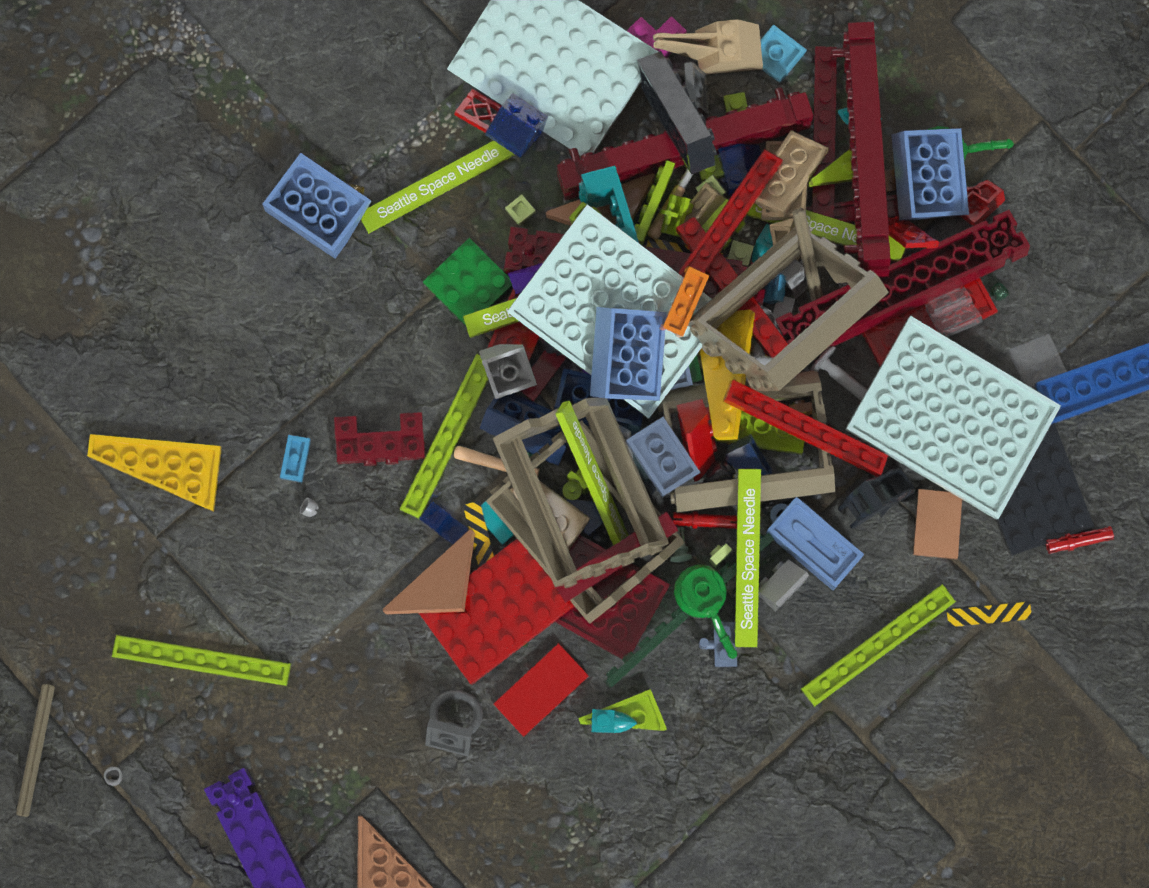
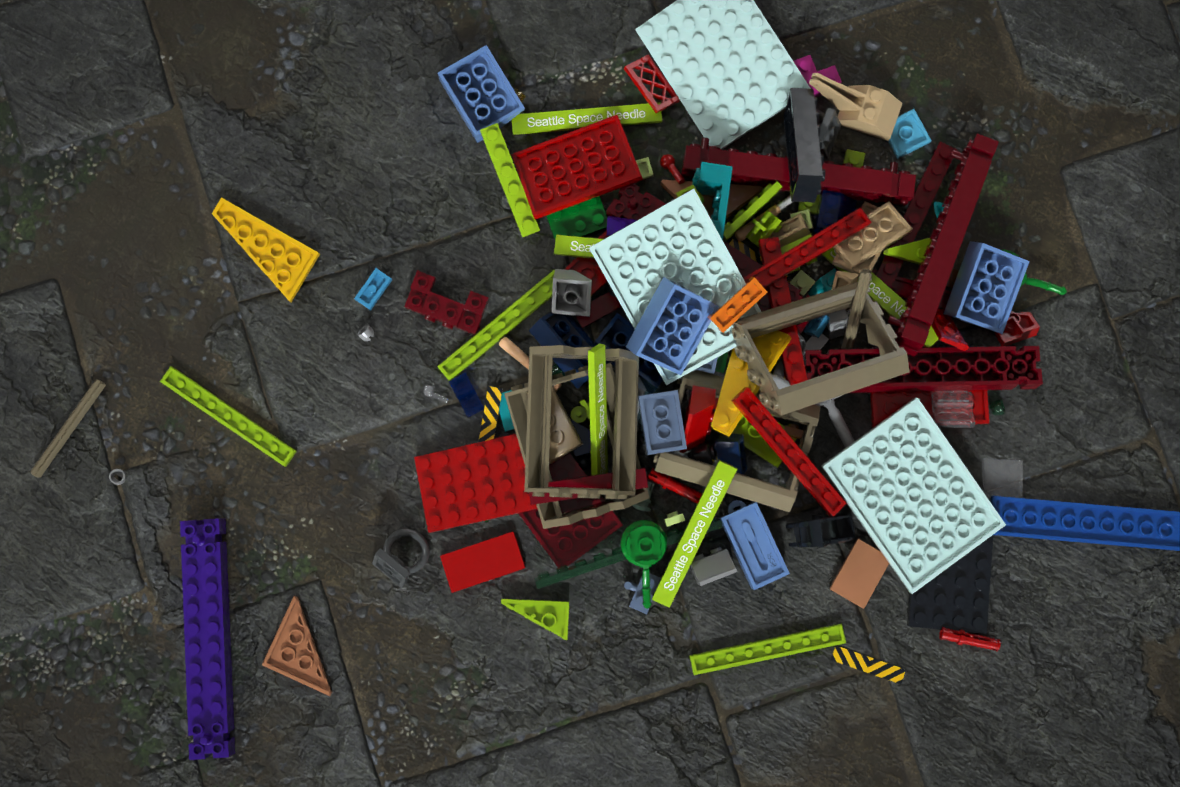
camera: 25 degrees right, 5 degrees up
(389, 282) = (509, 179): none -> lime plate
(403, 539) = (429, 392): none -> clear hand
(441, 585) = (440, 443): nougat tile -> none
(452, 237) = (576, 167): none -> red plate
(517, 125) = (669, 99): clear blue slope -> none
(544, 191) = (668, 162): none -> red bar
(611, 721) = (525, 613): teal plate -> none

